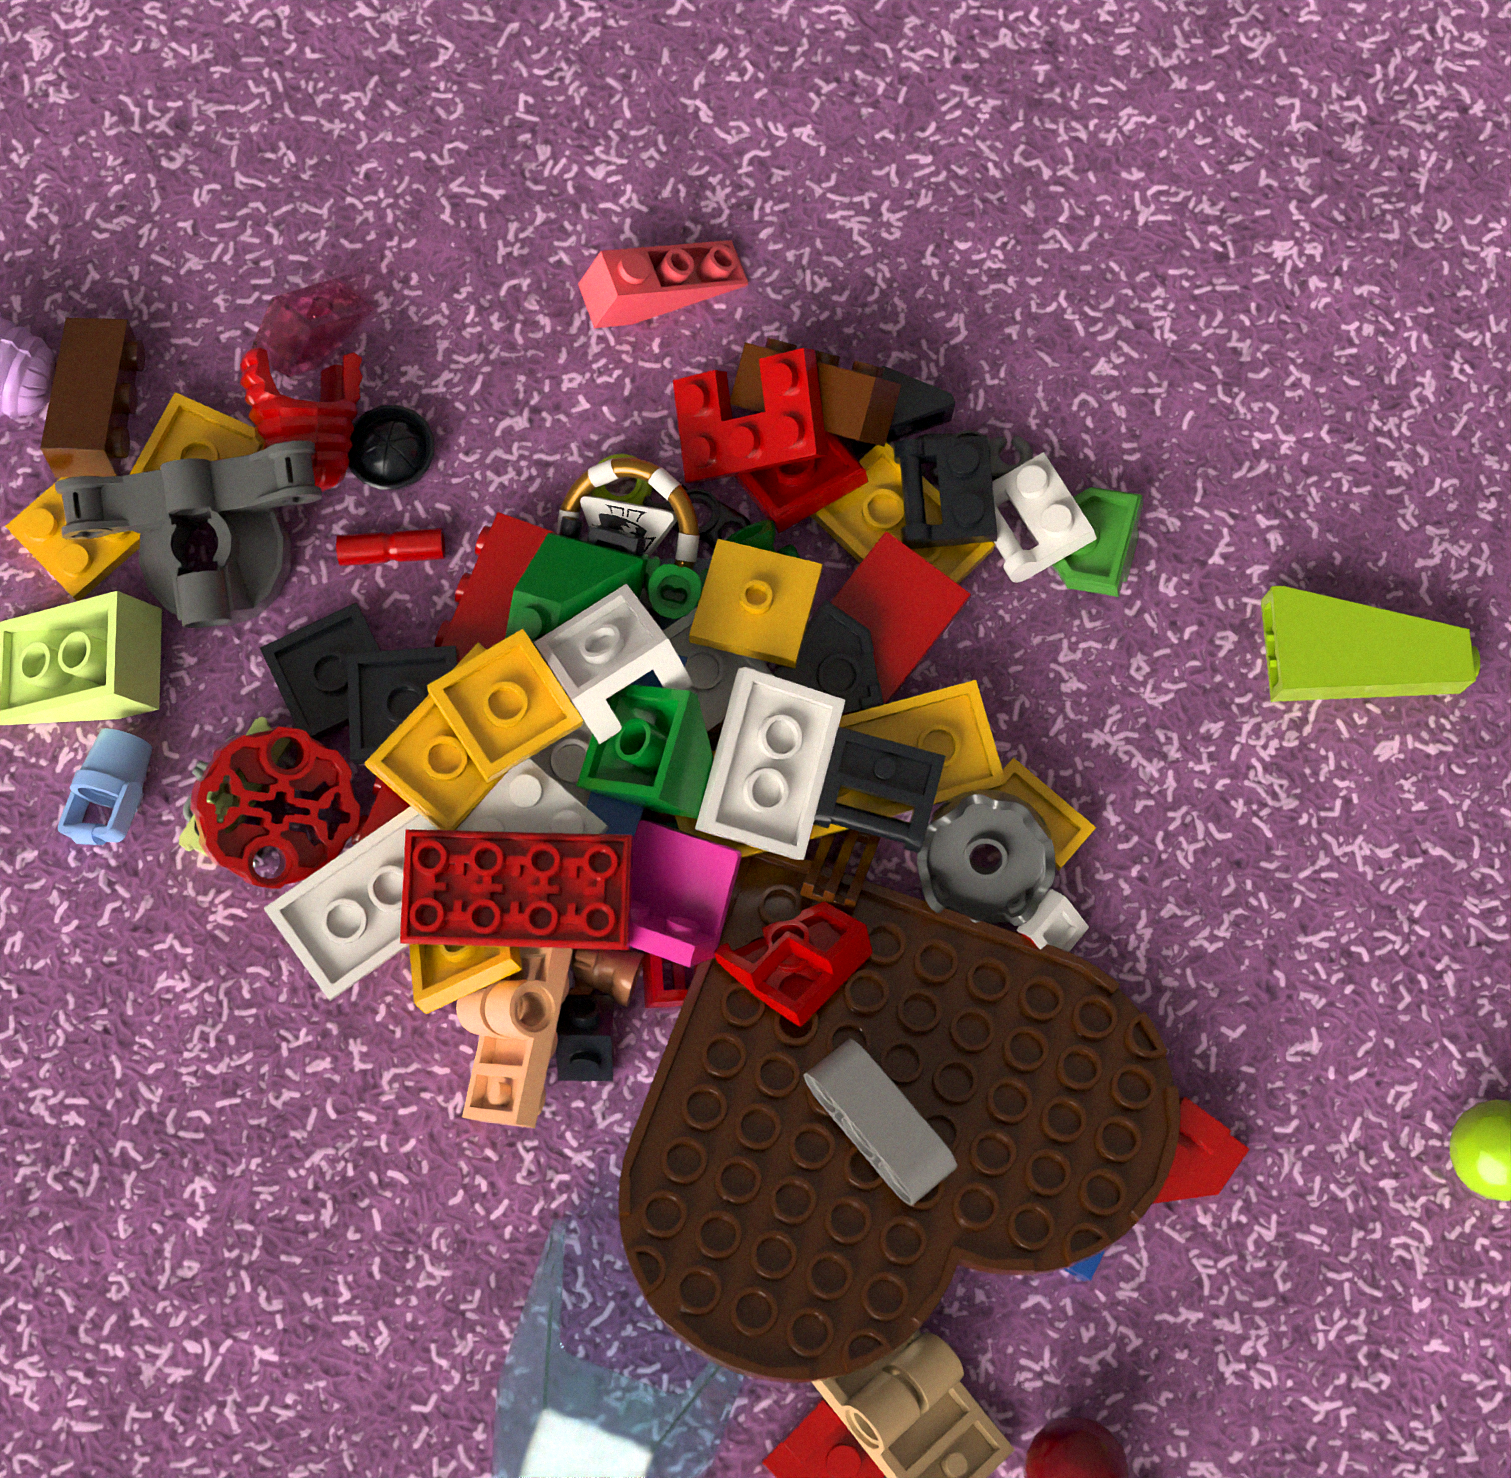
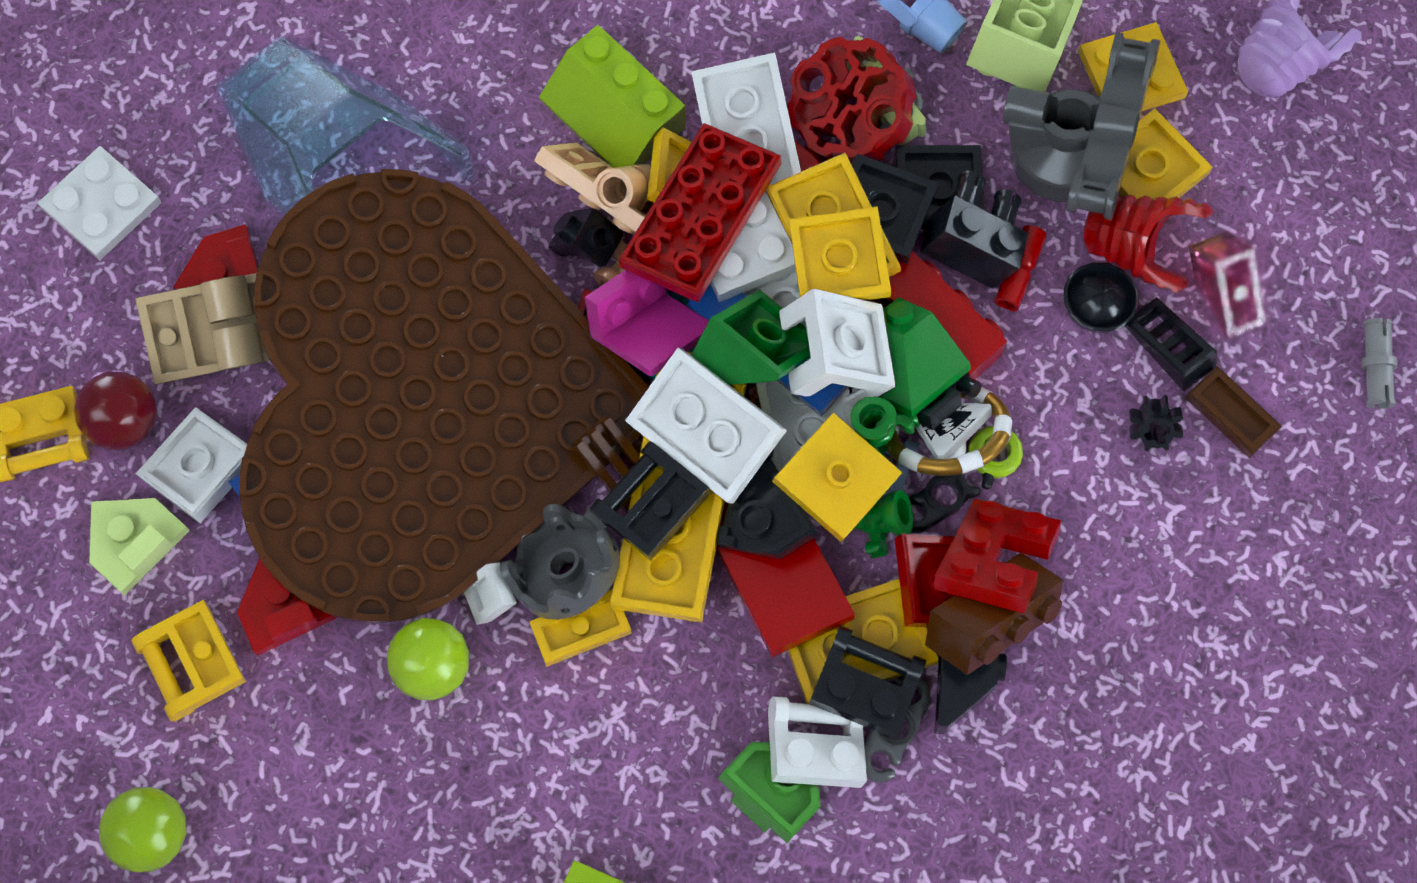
camera: 115 degrees right, 5 degrees down
(92, 398) = (1231, 107): reddish brown brick -> none
(335, 149) = (1379, 363): none -> light grey pin
(390, 592) = (973, 240): none -> black brick
(395, 1095) = (611, 100): none -> lime slope
(407, 317) = (1181, 374): none -> black slope
(457, 271) = (1233, 411): none -> reddish brown tile
(513, 333) = (1145, 427): none -> black gear
(655, 280) = (1156, 559): coral slope -> none
(800, 960) = (556, 390): red slope -> none
(880, 1121) = (409, 375): light grey beam -> none
(1081, 1340) = (195, 465): none -> white plate
(1161, 949) = (427, 659): none -> lime piece
(1200, 1370) = (131, 538): none -> yellowish green plate
(1282, 1206) = (201, 653): none -> yellow plate

